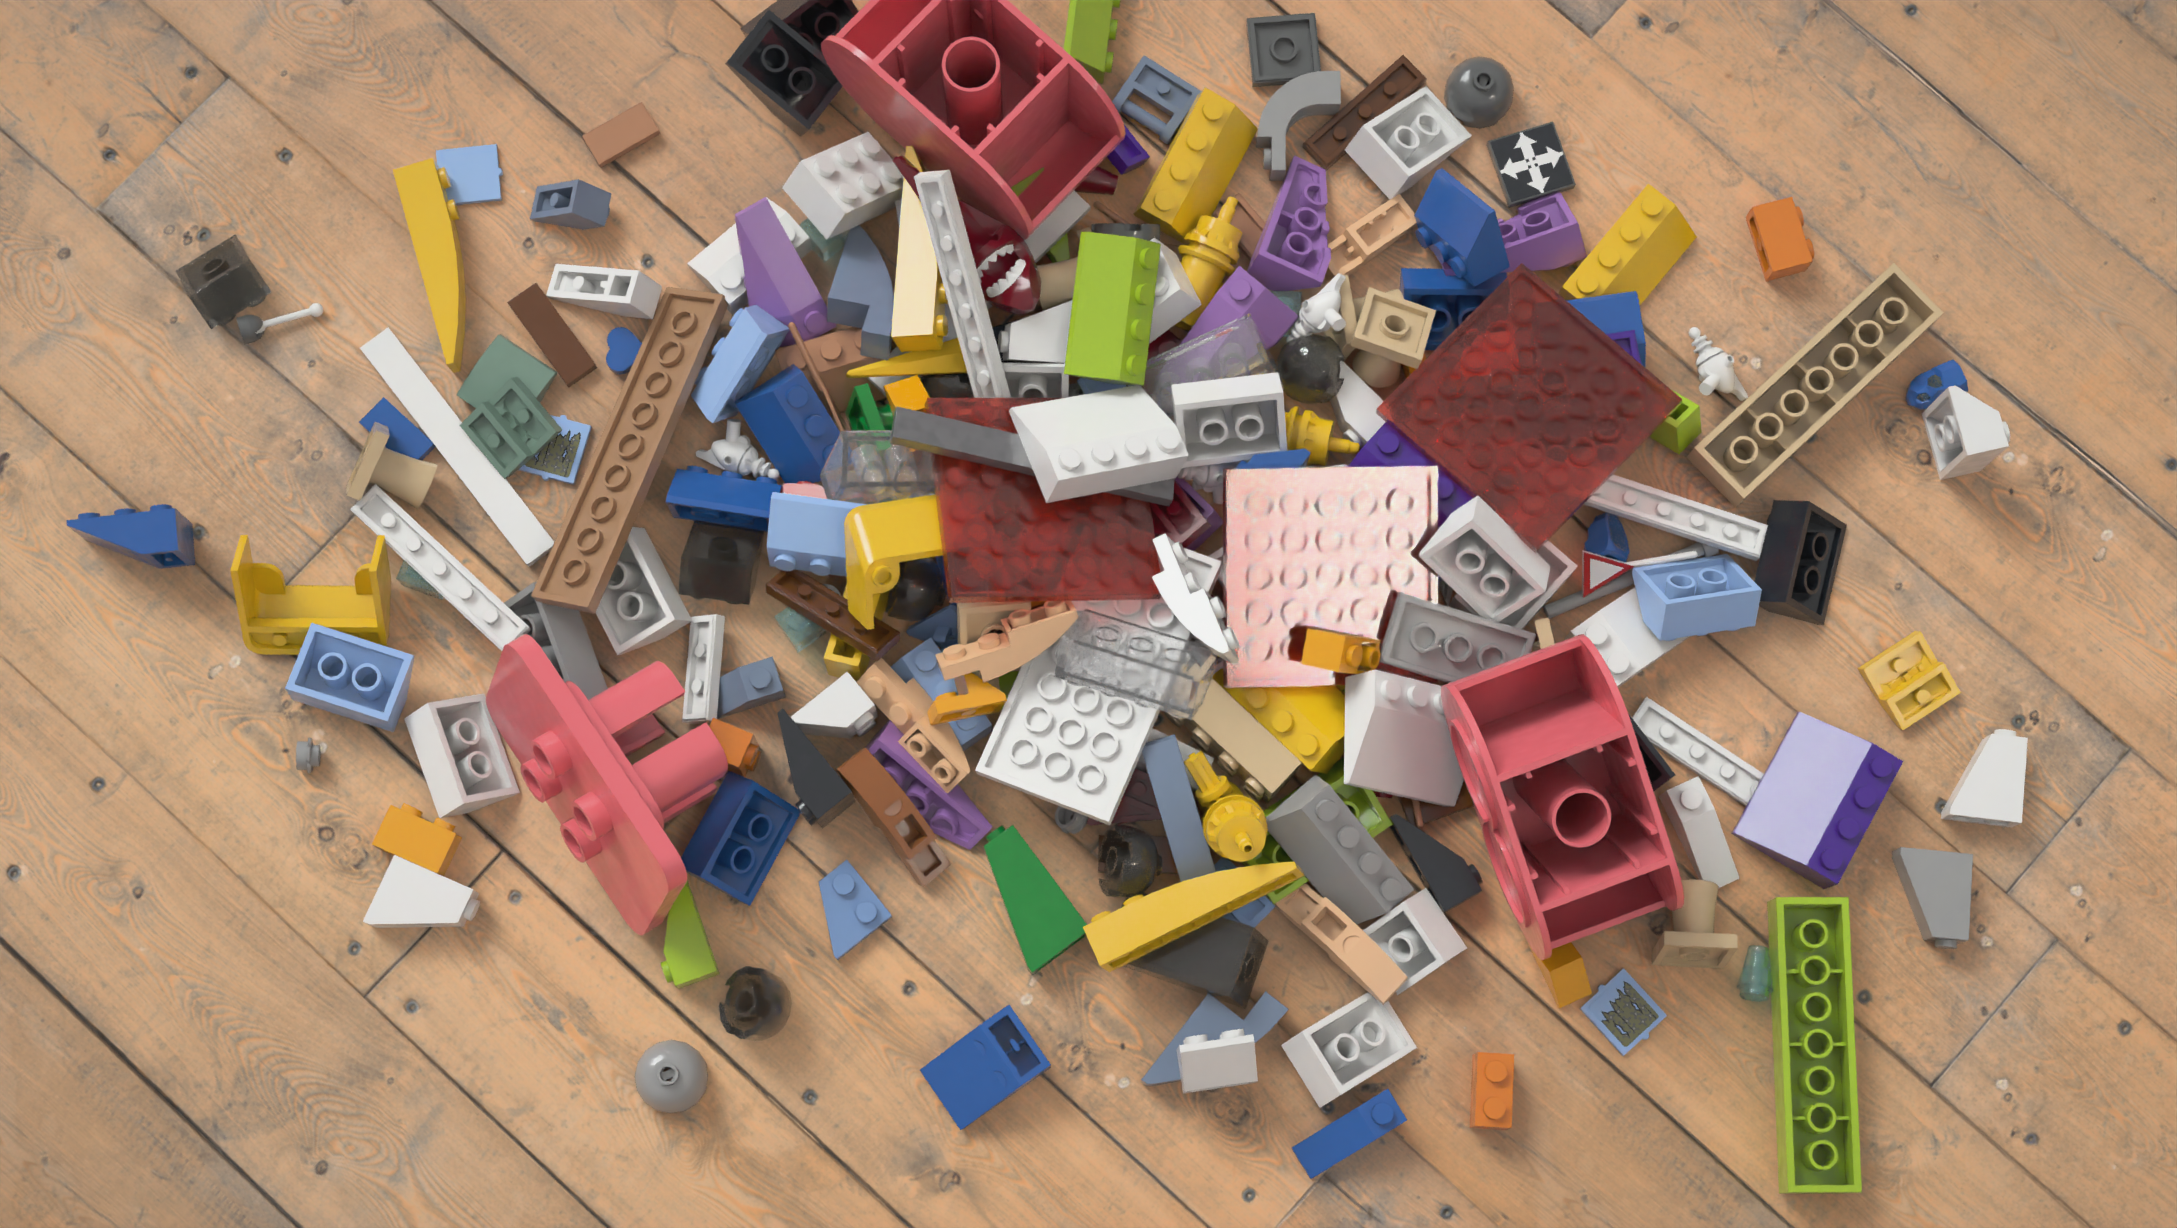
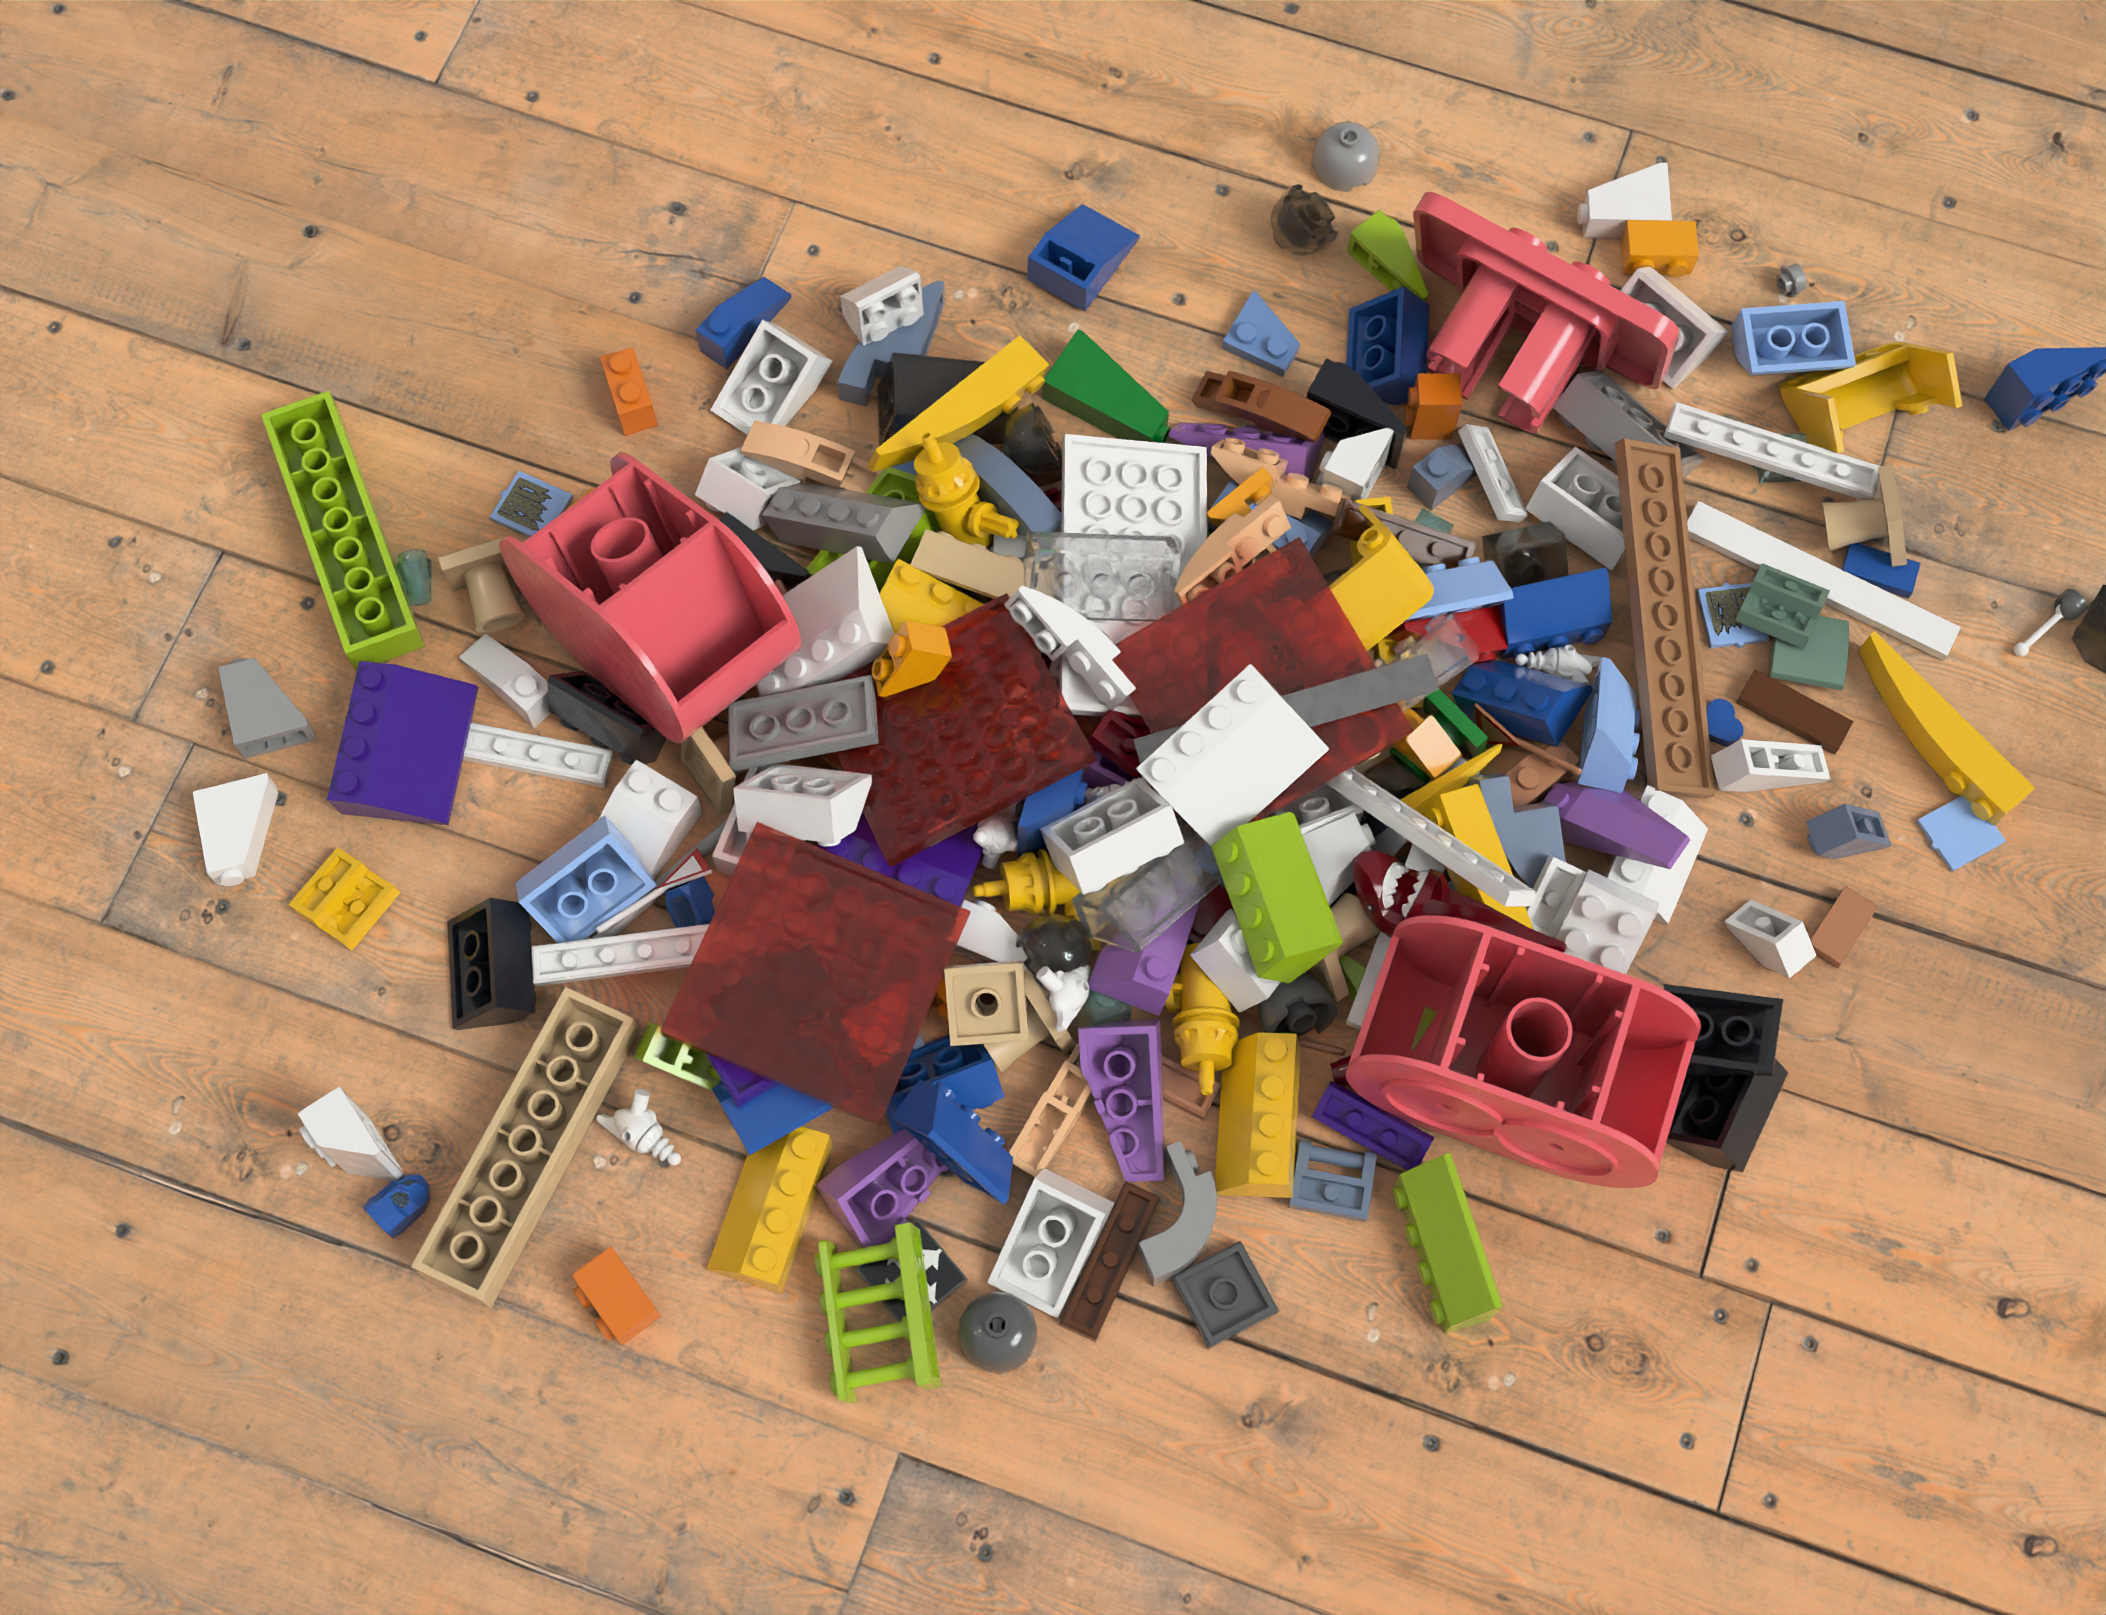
camera: 160 degrees right, 10 degrees down
(689, 146) = (1772, 937): none -> white slope
(867, 234) = (1555, 893): none -> white plate
(1539, 143) = (916, 1326): none -> lime fence

